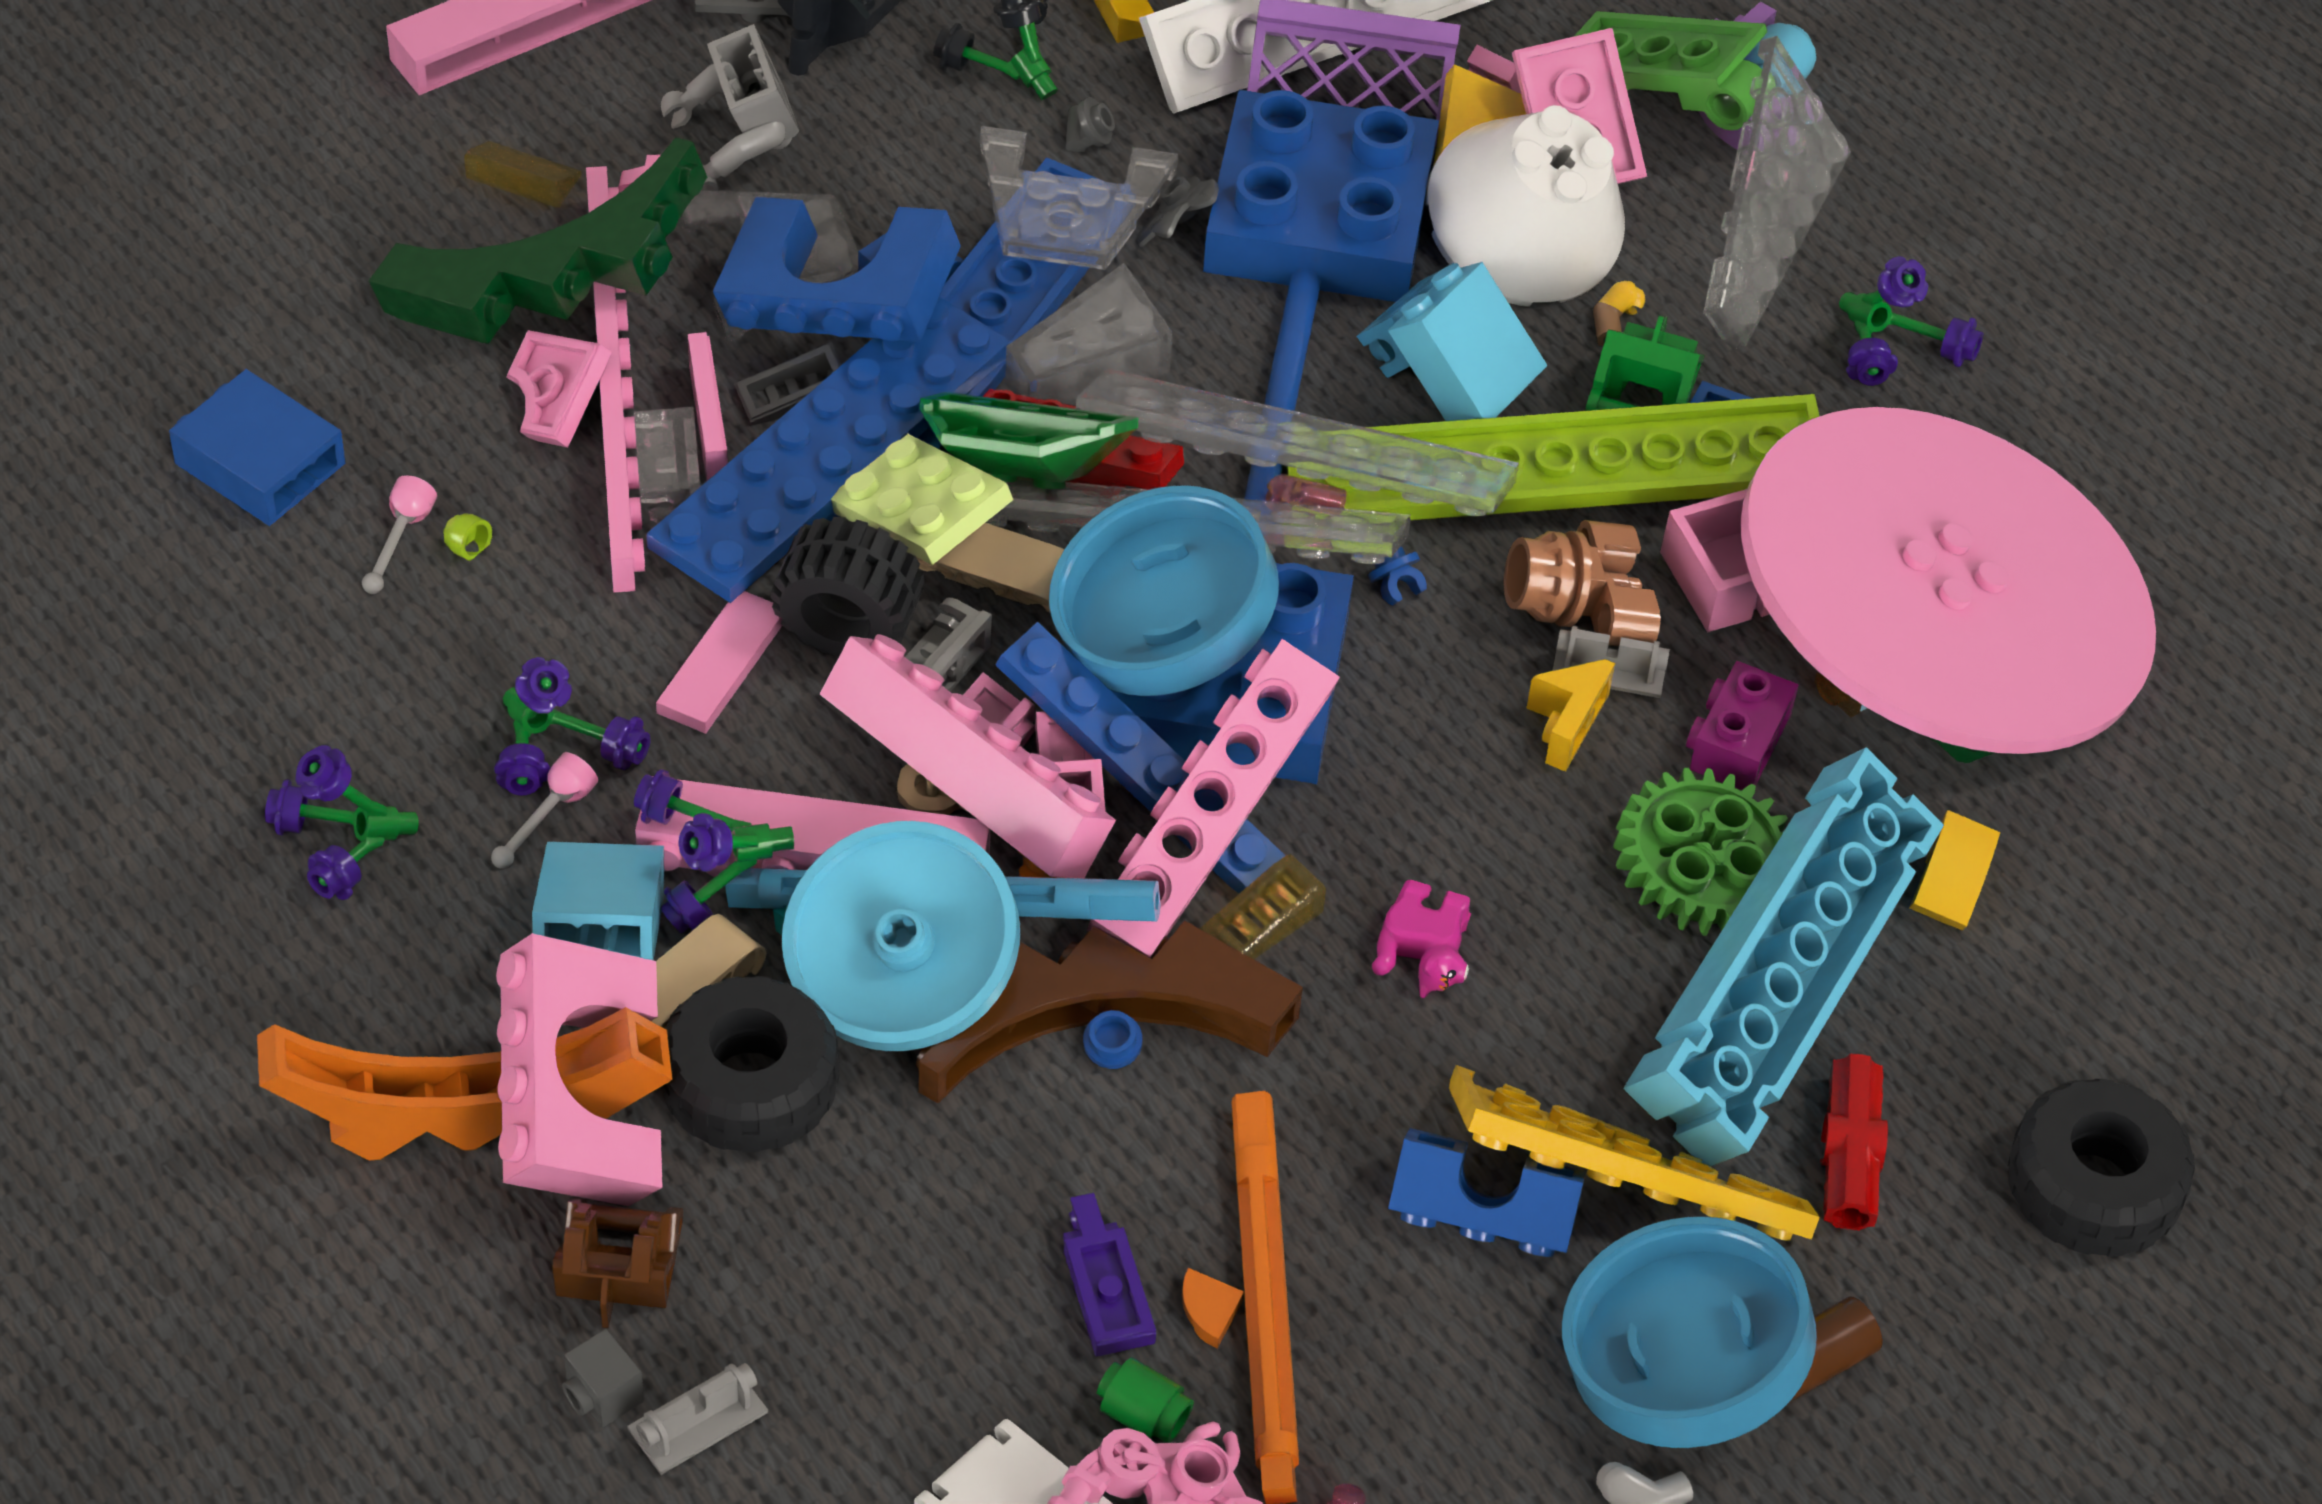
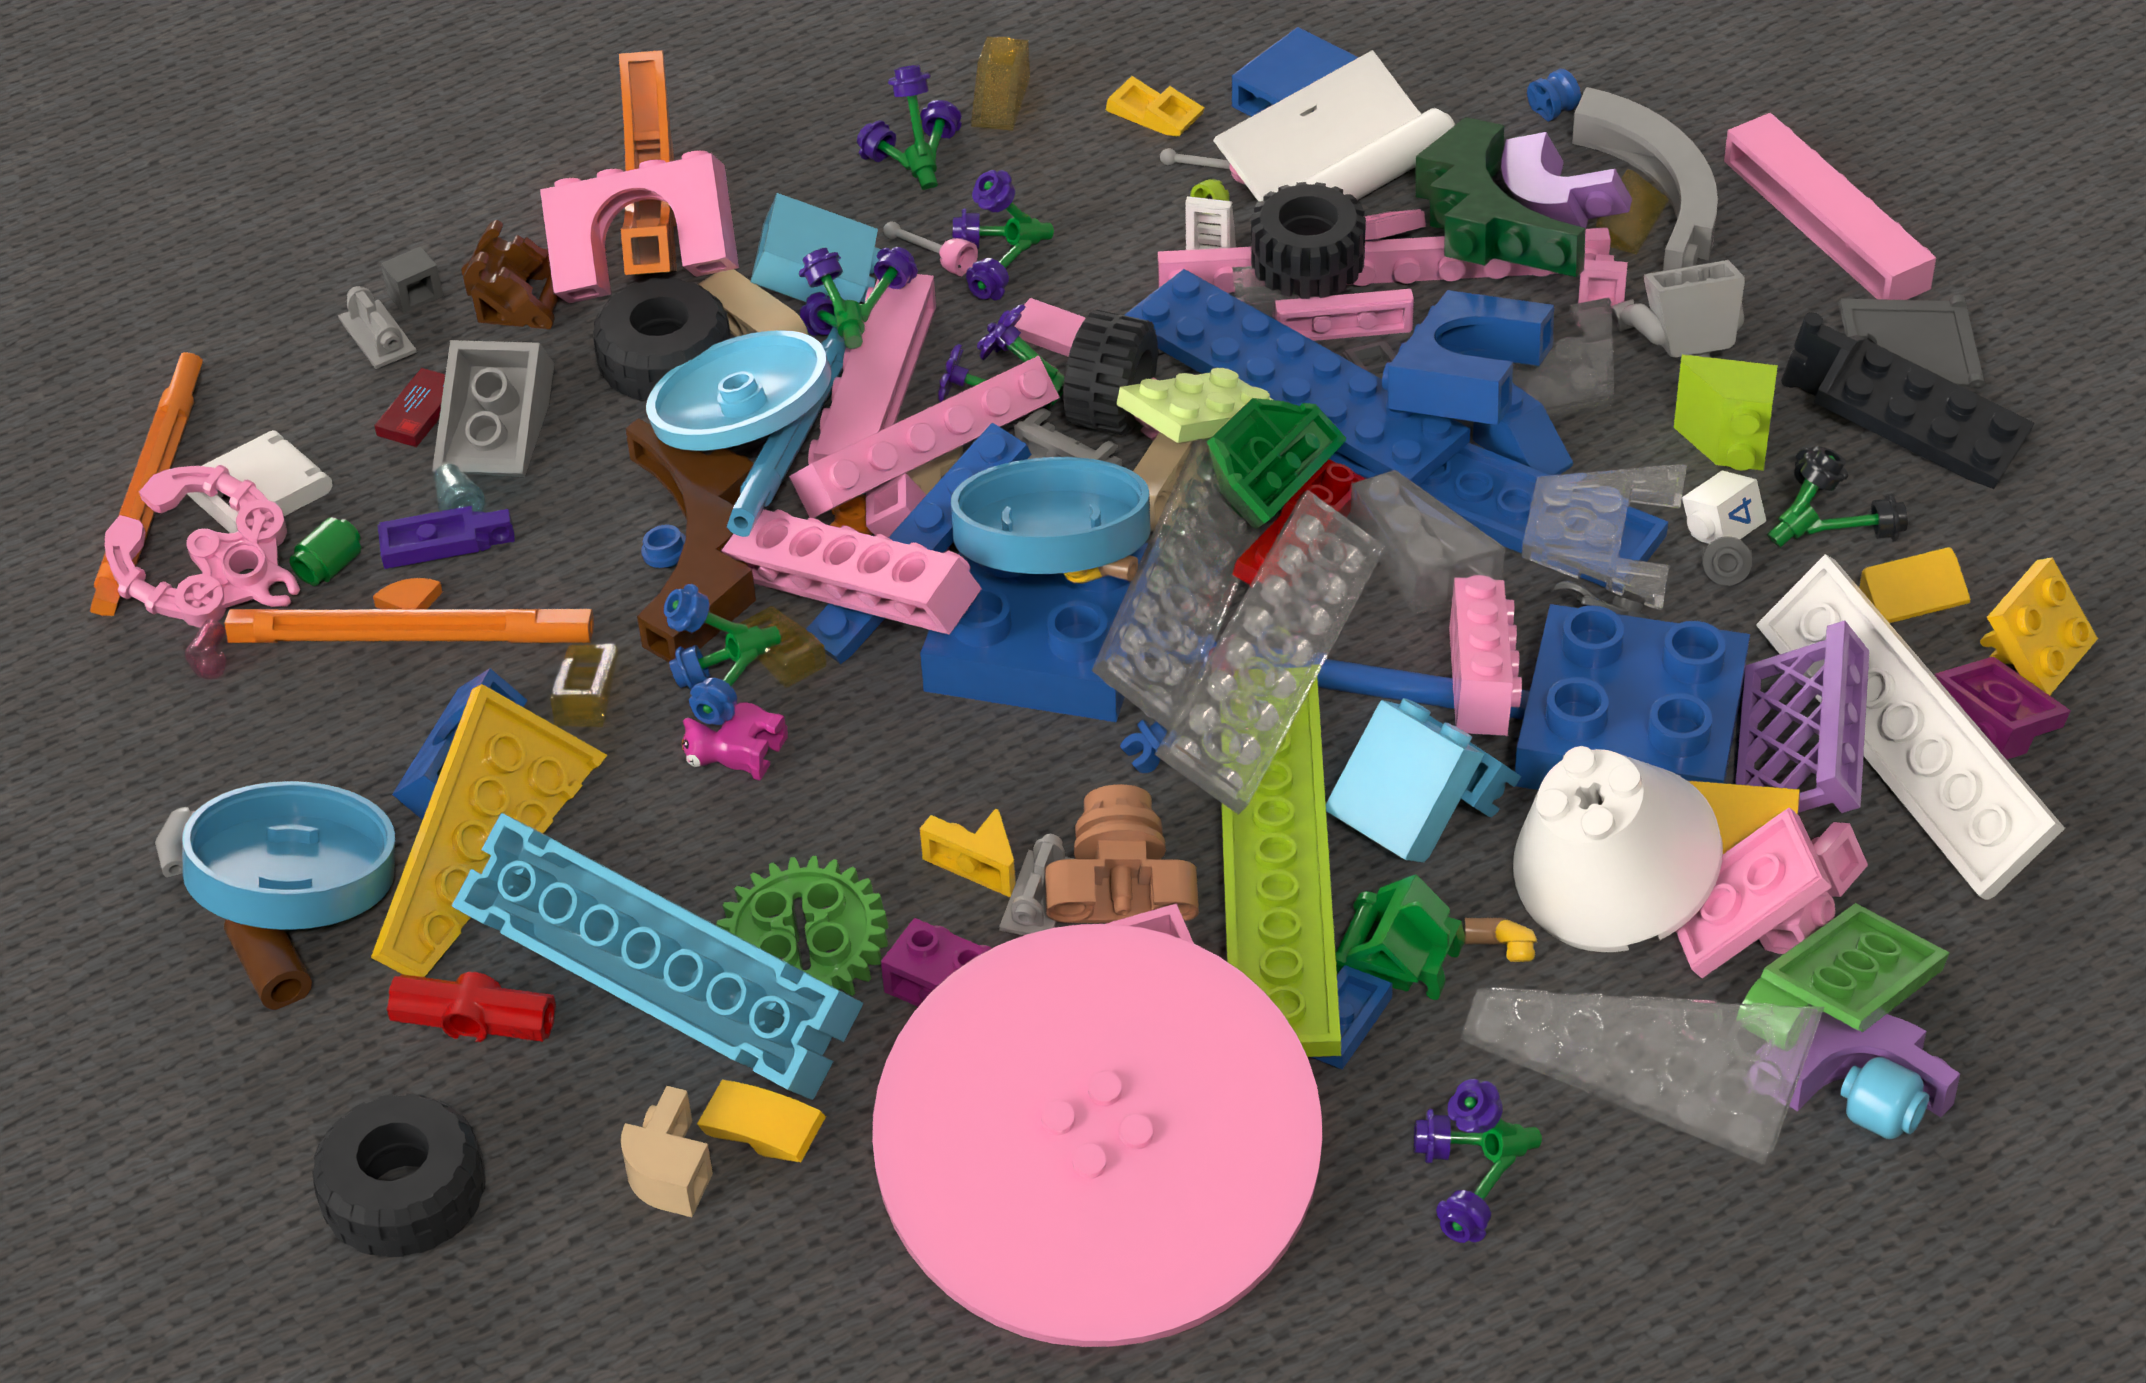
camera: 100 degrees right, 5 degrees down
(225, 742) = (1000, 83): none -> clear yellow slope
(280, 592) = (1164, 112): none -> yellow slope
(303, 217) = (1554, 94): none -> blue wheel
(400, 406) = (1354, 139): none -> white door
(463, 117) = (1664, 155): none -> light grey arch
(527, 212) = (1533, 176): none -> medium lavender arch
(579, 518) = (1194, 238): none -> white slope
(647, 366) = (1308, 240): none -> black tyre
(805, 681) = (1000, 336): none -> dark purple plant
(849, 1346) = (414, 409): none -> dark red tile
(873, 1244) = (493, 406): none -> light grey slope
(902, 87) = (1726, 409): none -> lime slope
(1026, 1271) = (456, 489): none -> clear light blue cone
(1030, 108) = (1724, 507): none -> white brick
(1281, 288) = (1483, 656): none -> bright pink brick
(1332, 924) = (712, 698): none -> blue plant
(1364, 1116) = (584, 700): none -> clear yellow slope
(2025, 951) = (663, 1164): none -> tan brick

